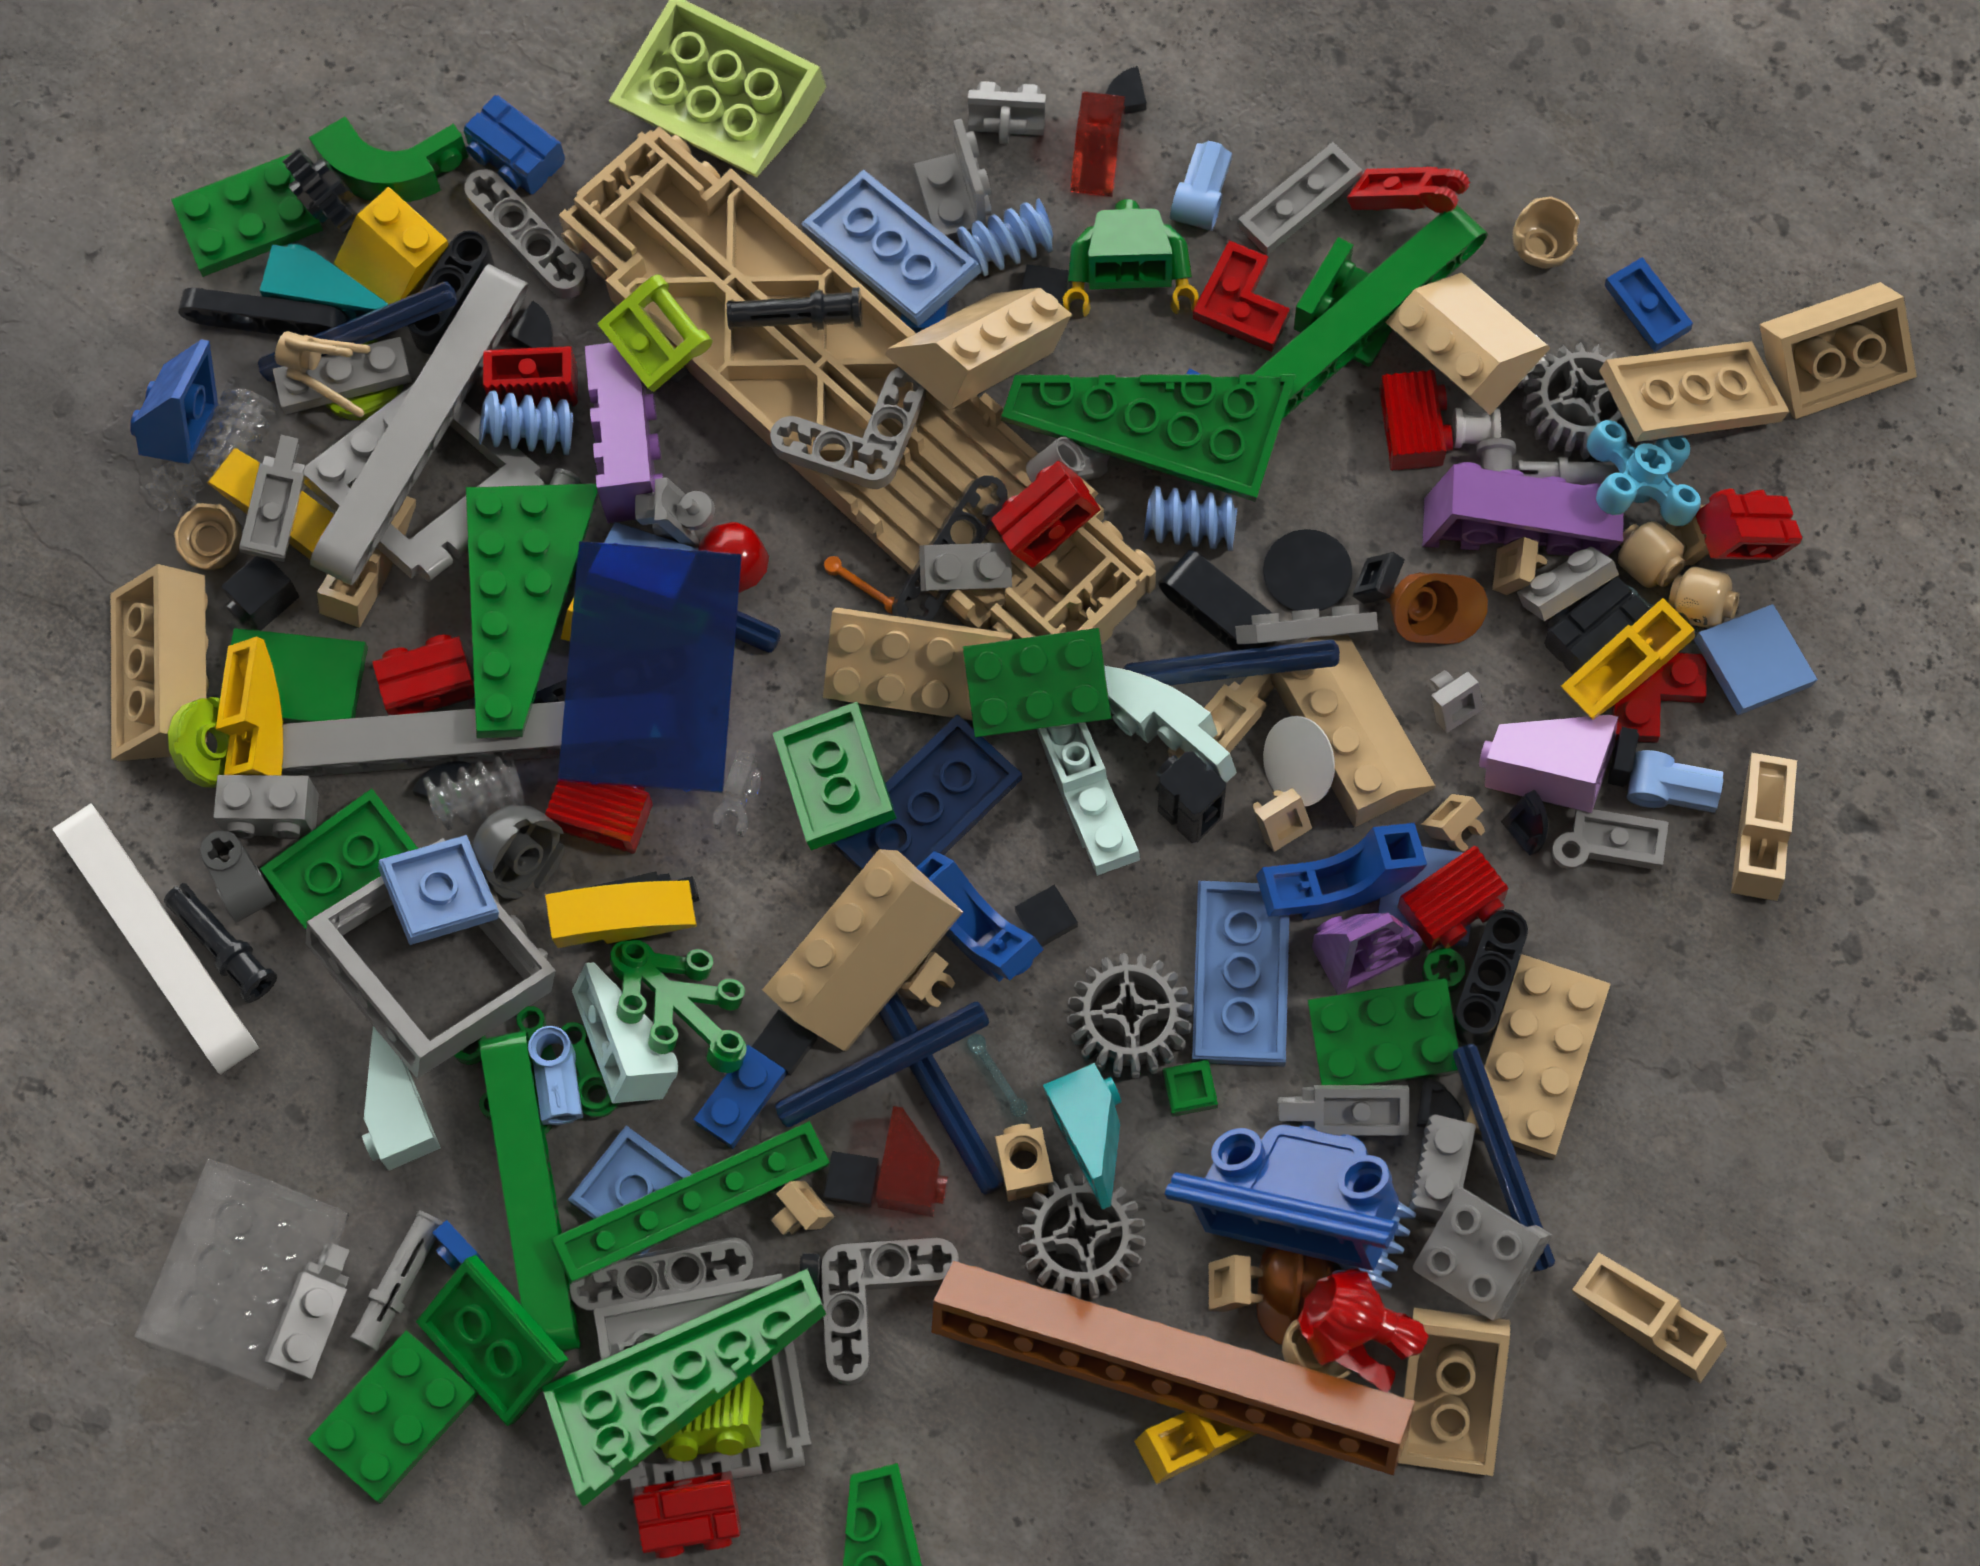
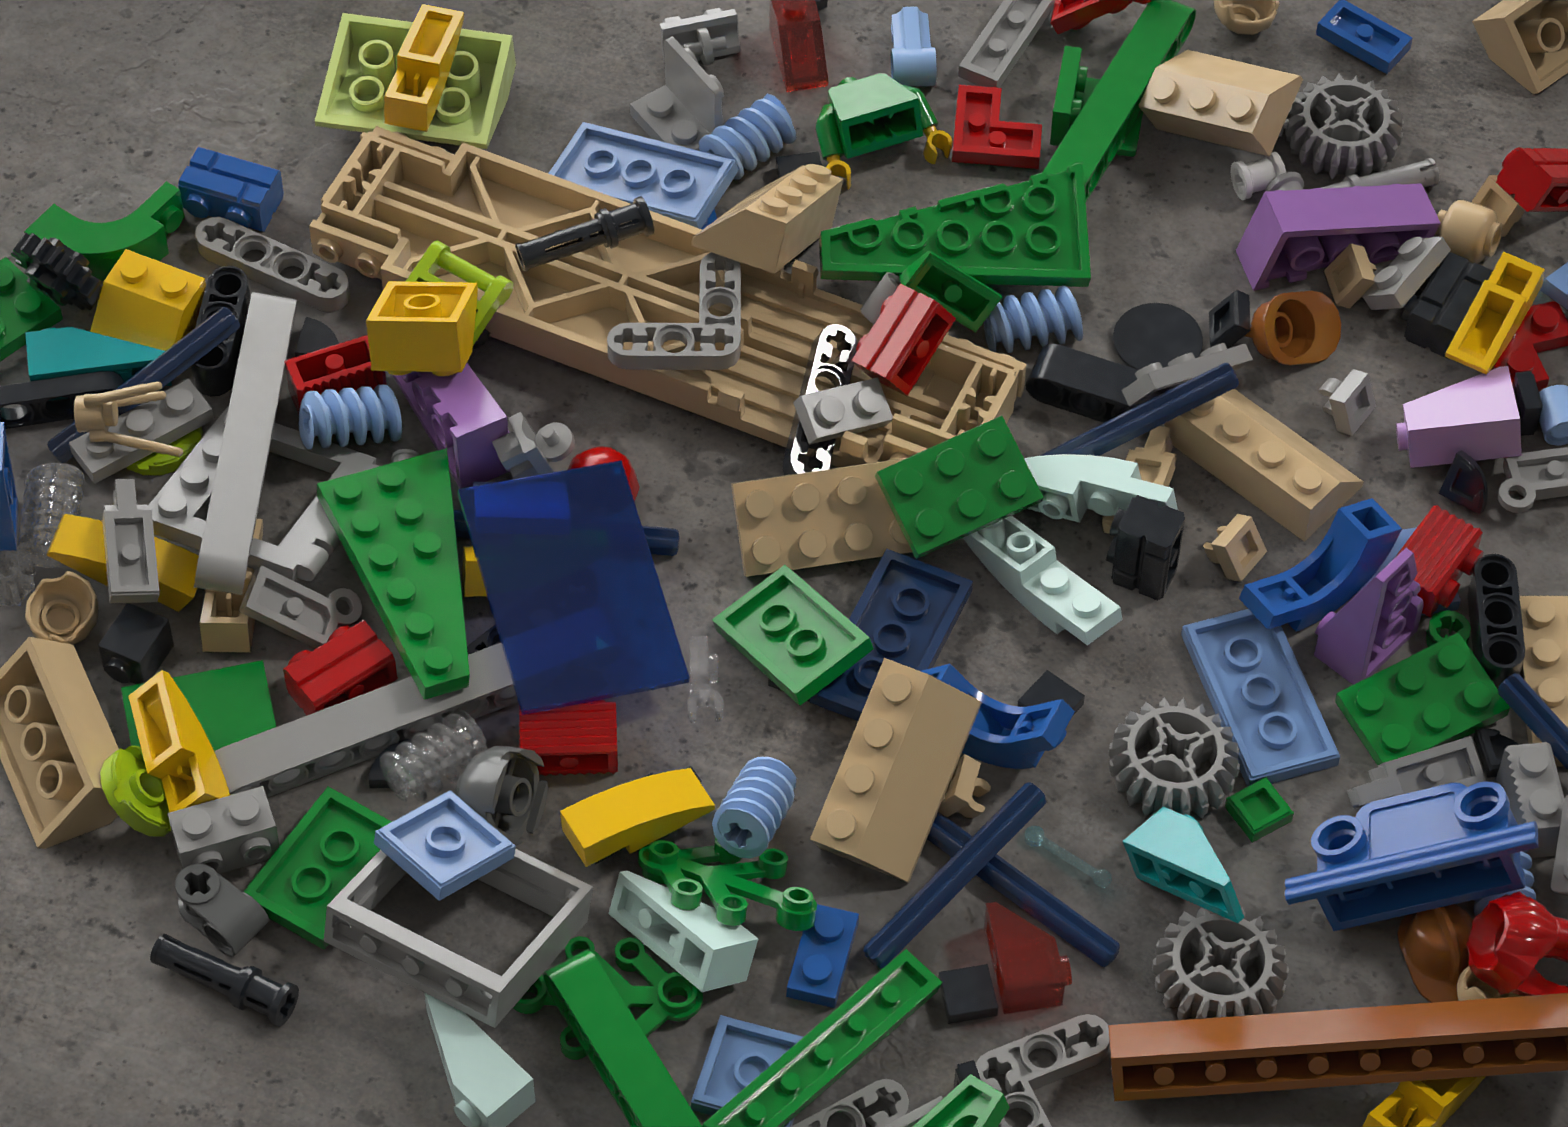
camera: 25 degrees left, 15 degrees down
(156, 939) = (157, 994): white beam -> none
(409, 603) = (296, 608): none -> light grey hinge
(555, 1079) = (636, 982): light blue piece -> none
(610, 361) = (422, 327): none -> yellow slope
(721, 79) = (423, 68): none -> yellow slope
(729, 938) = (754, 807): none -> light blue piece
(785, 1041) = (846, 888): black tile -> none
(801, 1209) = (932, 1033): tan tile -> none
(834, 567) = (704, 463): orange hinge -> none
(1023, 1182) = (1137, 938): tan brick -> none
(1112, 473) = (952, 288): none -> green slope
(1231, 1283) = (1383, 964): tan tile -> none
(1299, 758) = (1231, 483): white piece -> none
(1414, 420) = (1198, 184): red brick -> none
(1452, 818) = (1401, 496): tan tile -> none
(1643, 473) = (1433, 159): medium azure gear -> none
(1693, 391) = (1443, 85): tan plate -> none
(1704, 597) = (1536, 245): tan head -> none

